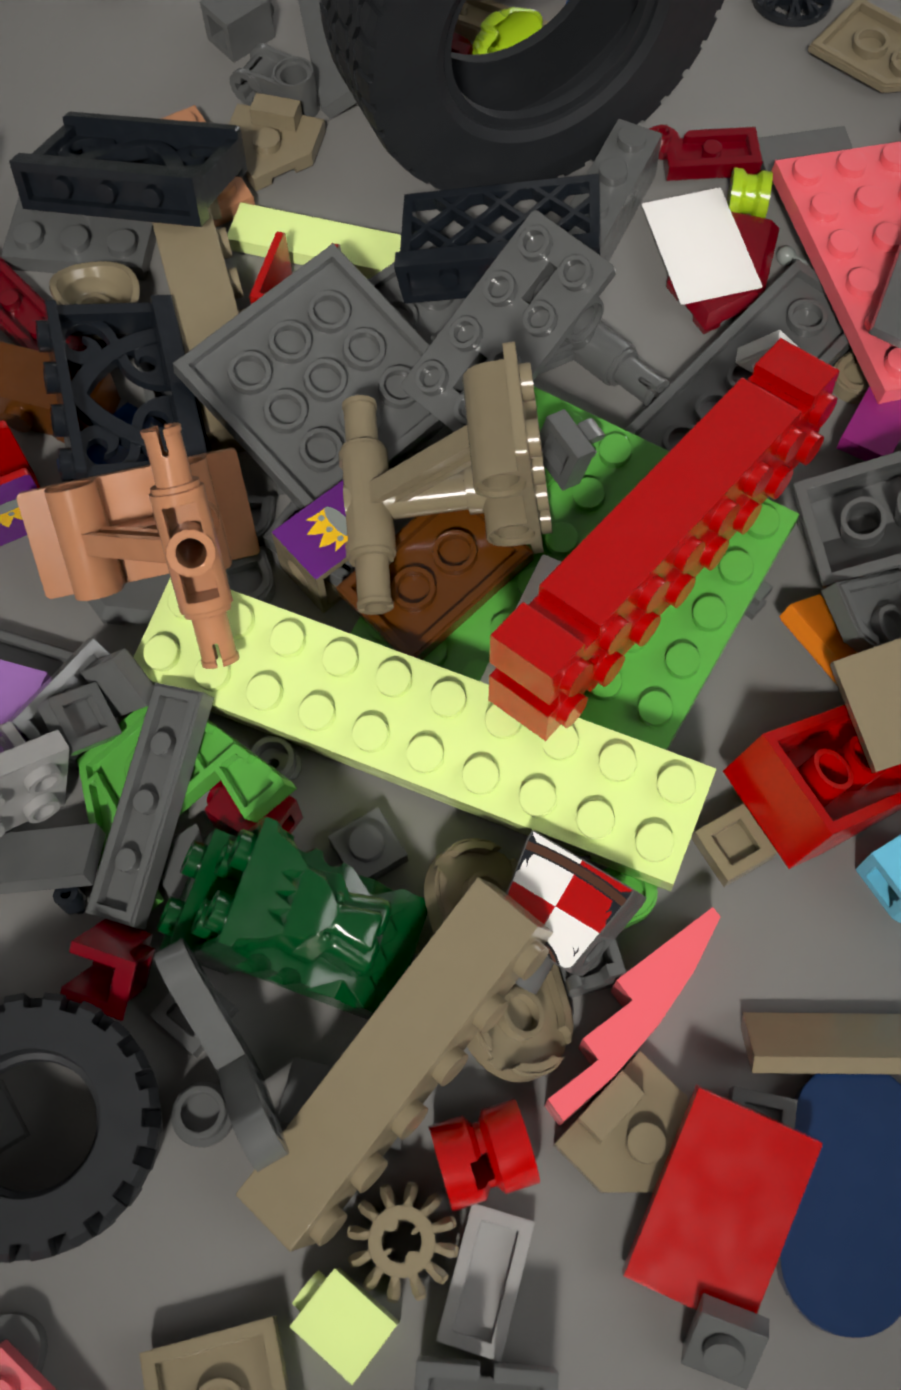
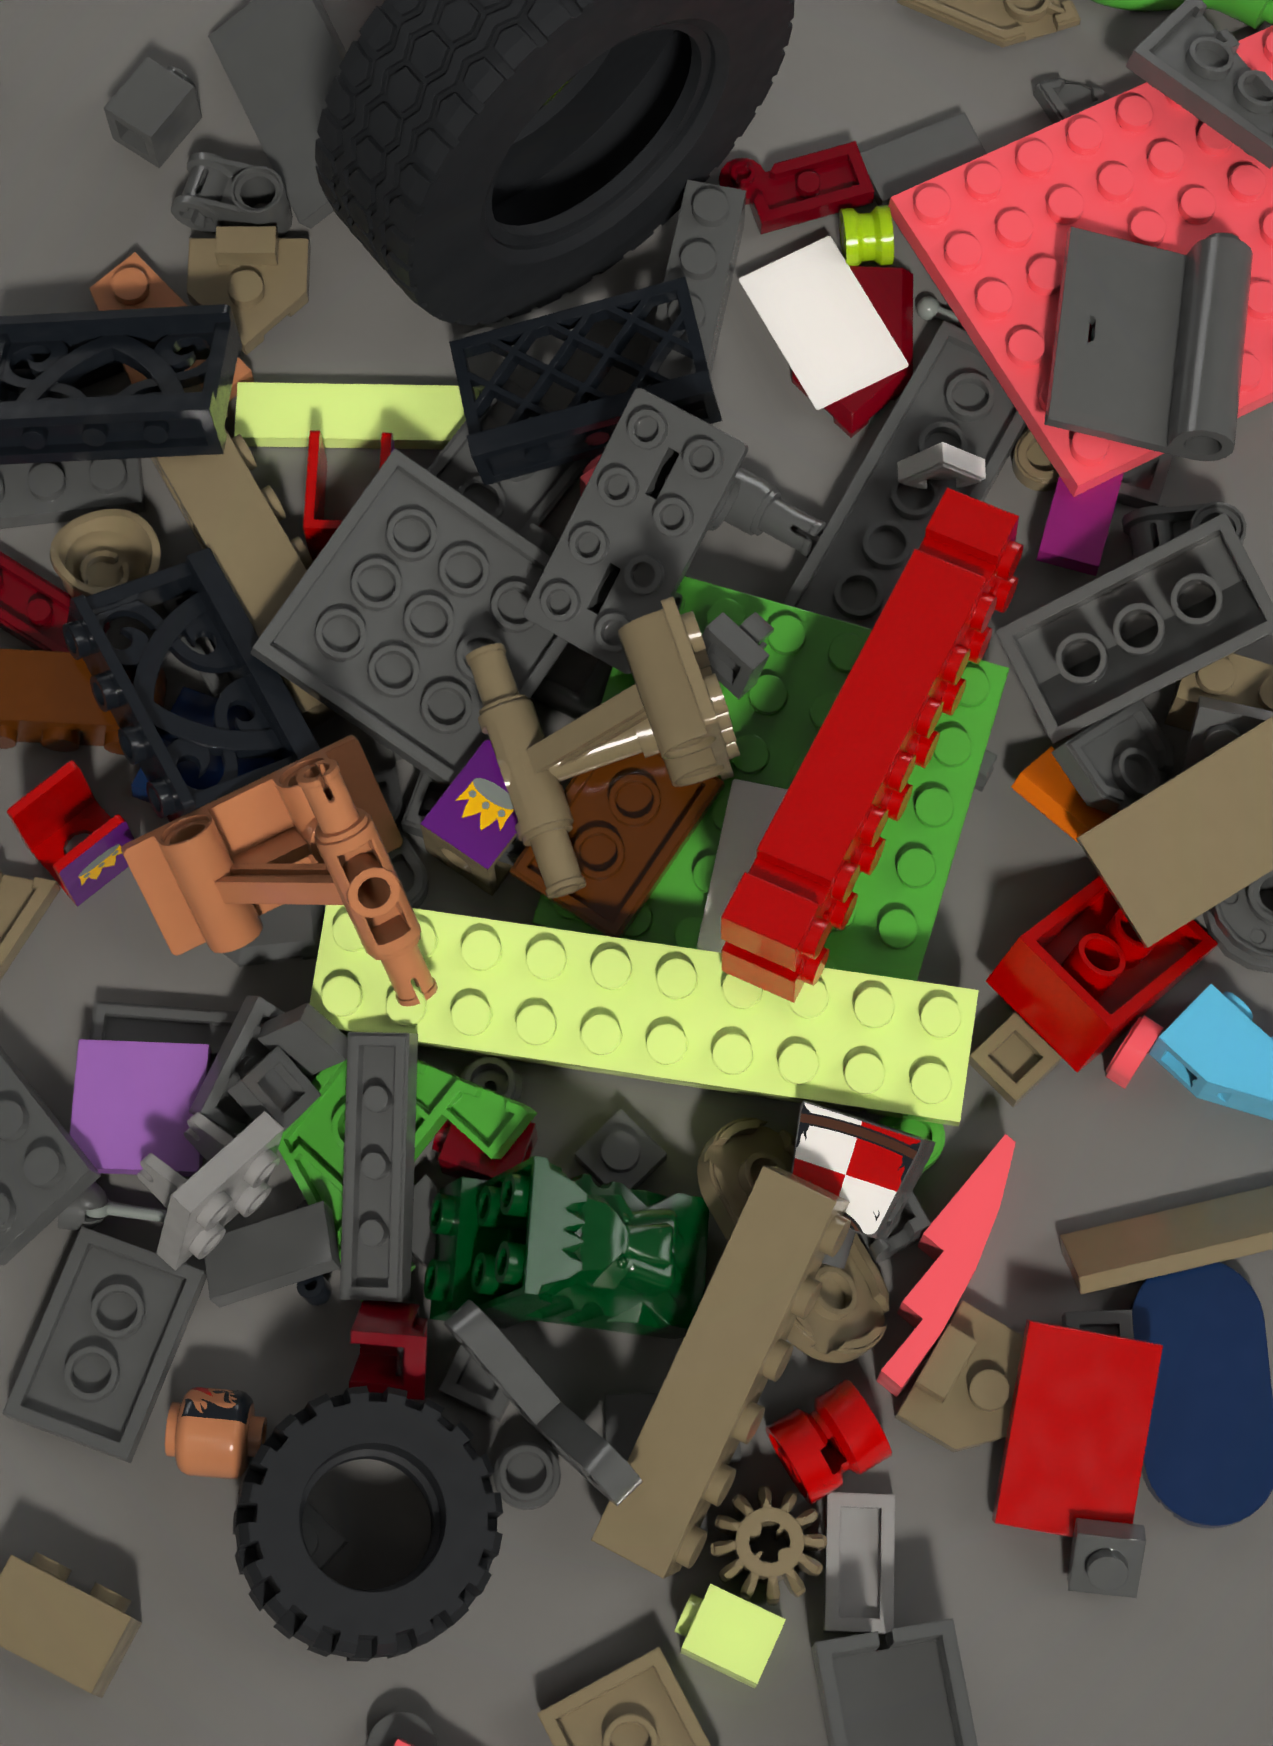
camera: 15 degrees left, 5 degrees up
(843, 862) = (1133, 1051): none -> coral tile

